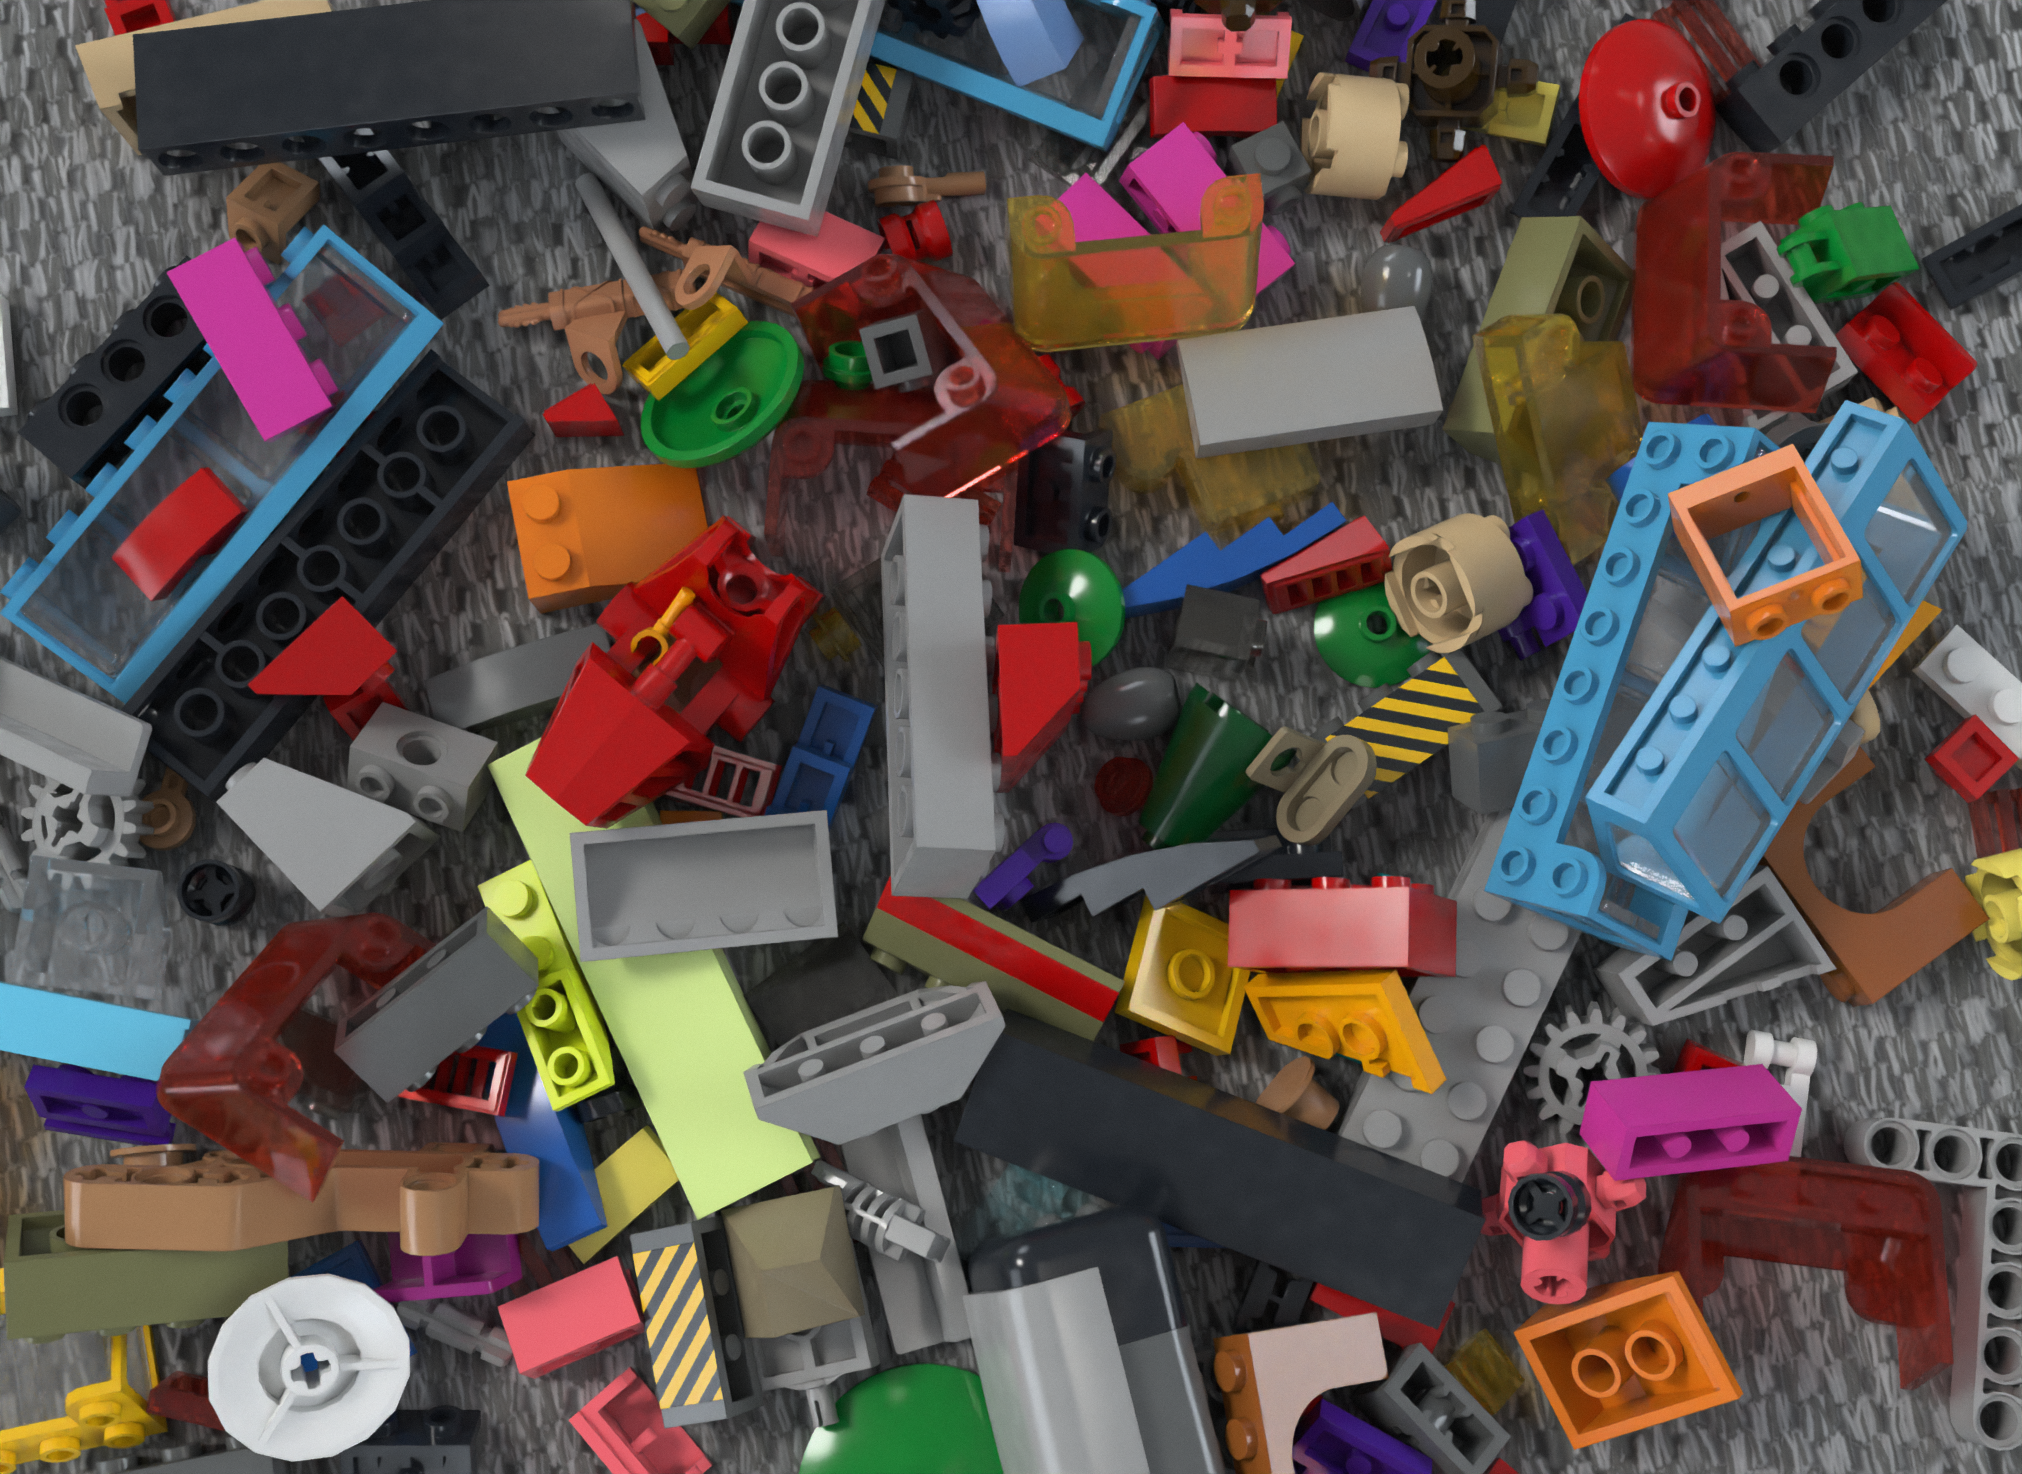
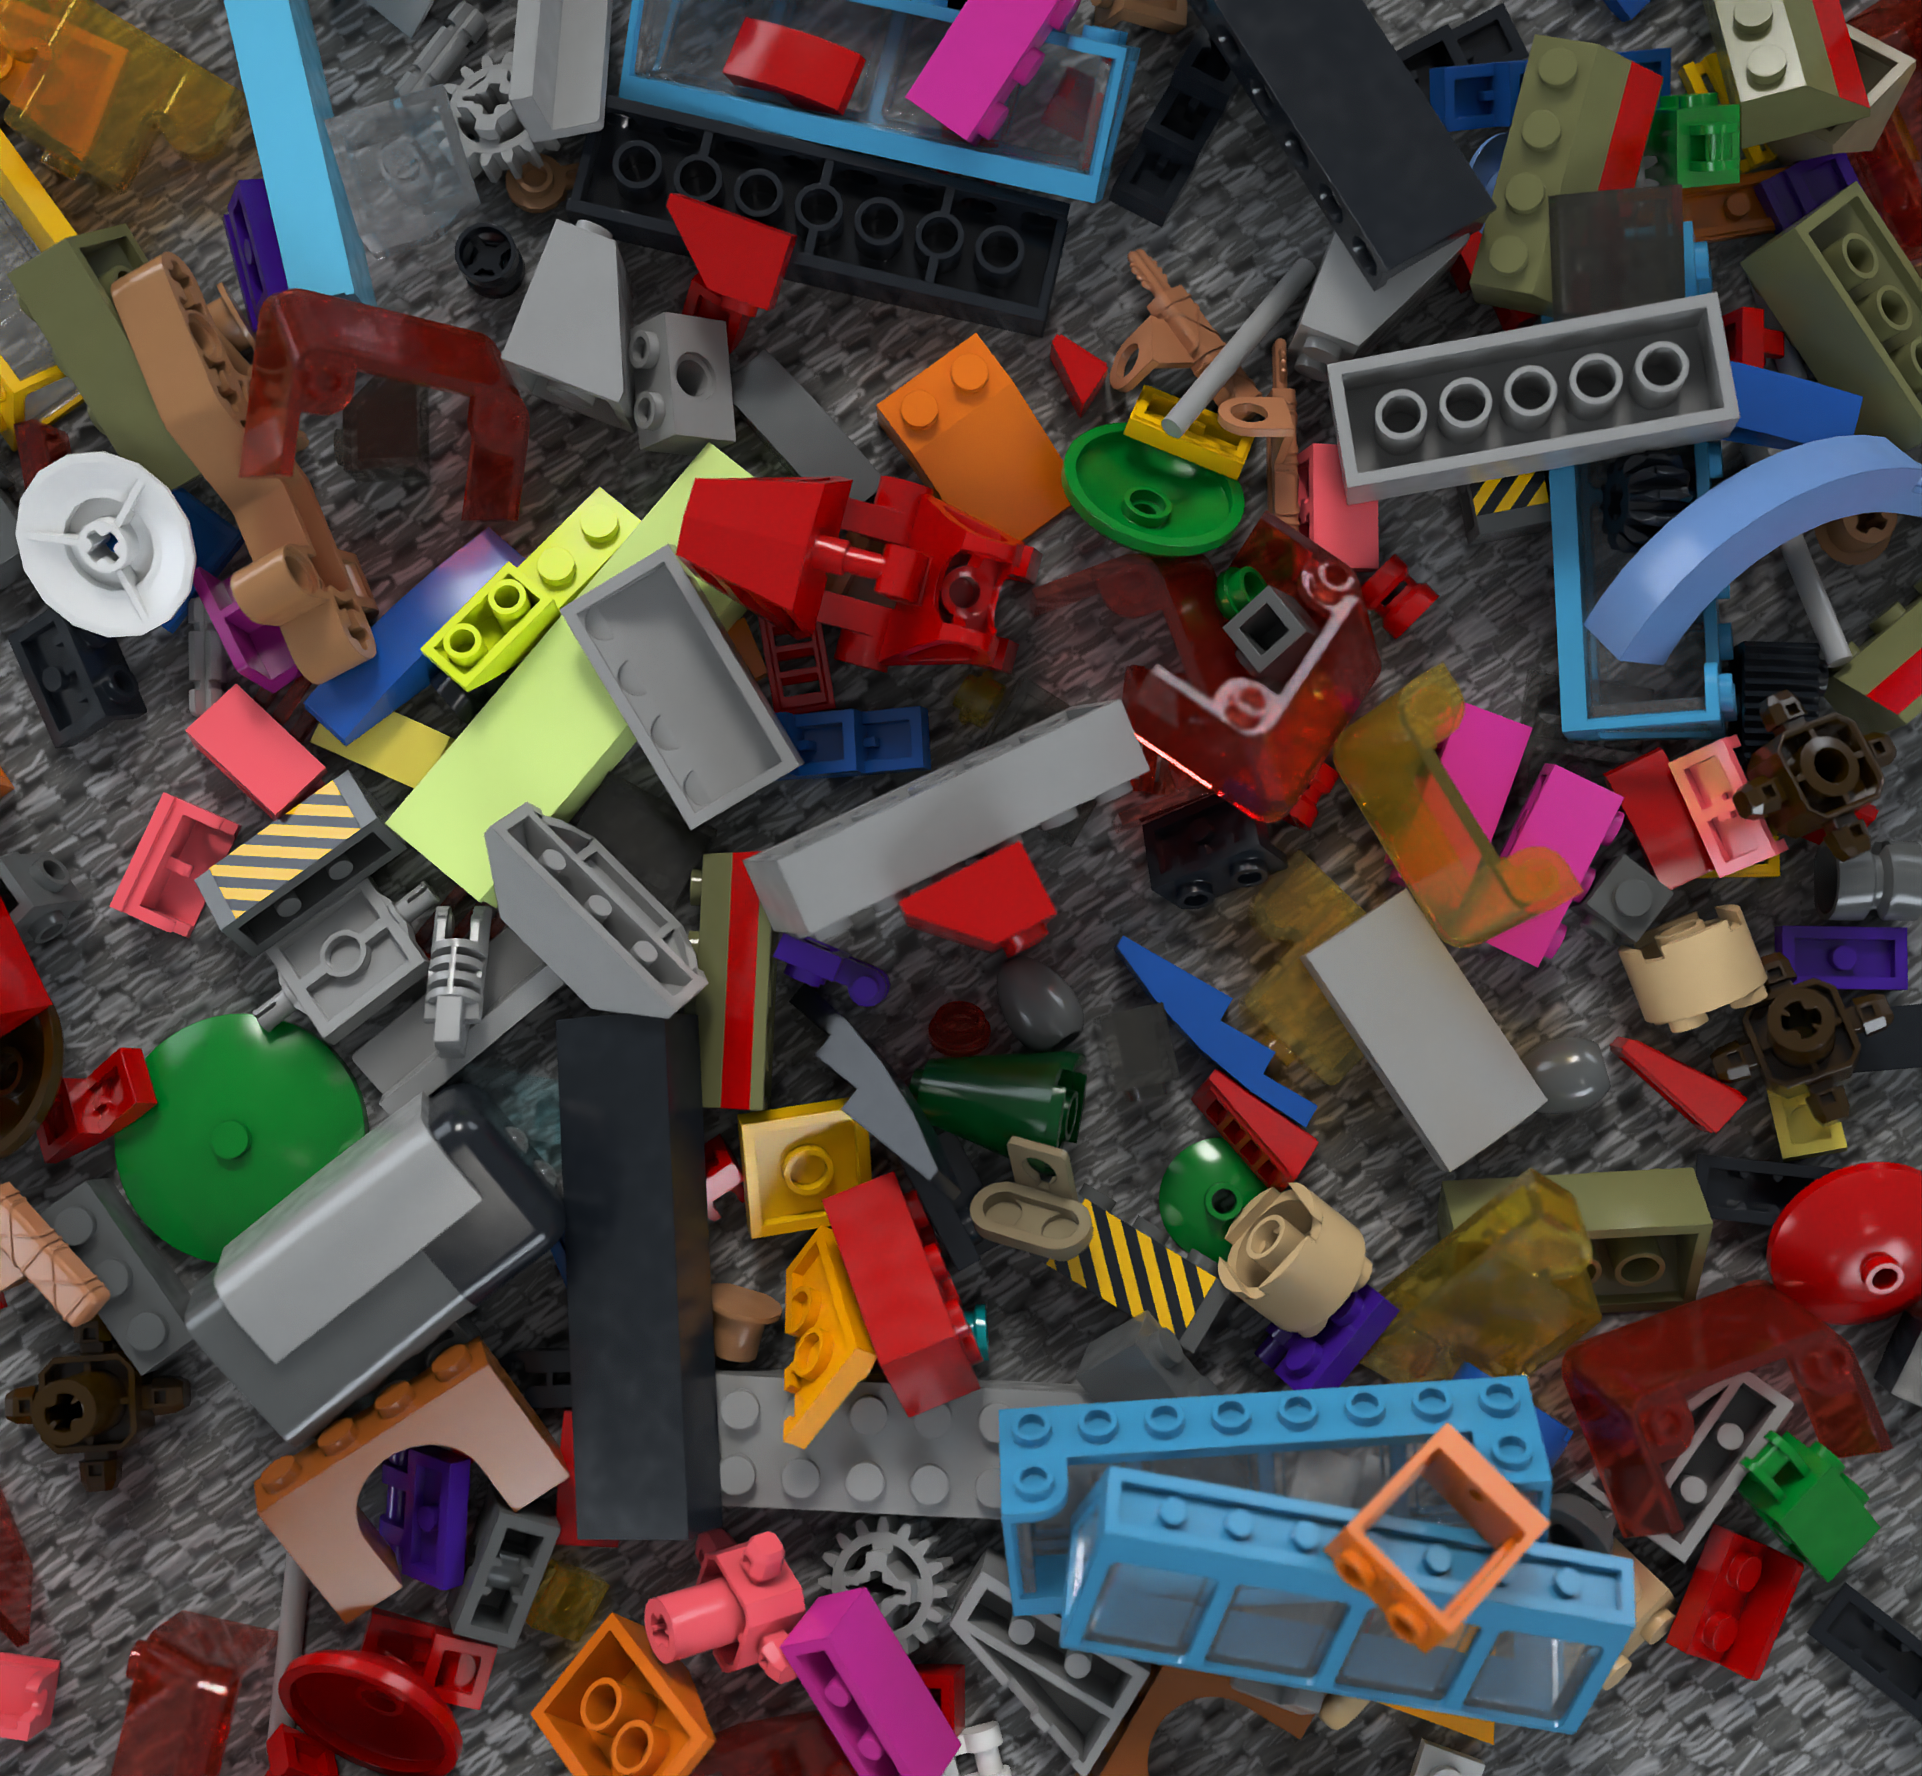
camera: 70 degrees right, 5 degrees up
(438, 1006) = (466, 502): dark grey brick -> none
(499, 1089) = (412, 512): red slope -> none
(663, 624) = (898, 537): light orange hand -> none
(793, 1263) = (383, 927): dark tan slope -> none
(900, 186) = (1439, 560): medium nougat plate -> none
(1087, 592) = (1112, 921): green dish -> none
(1537, 1210) = (716, 1584): black wheel -> none

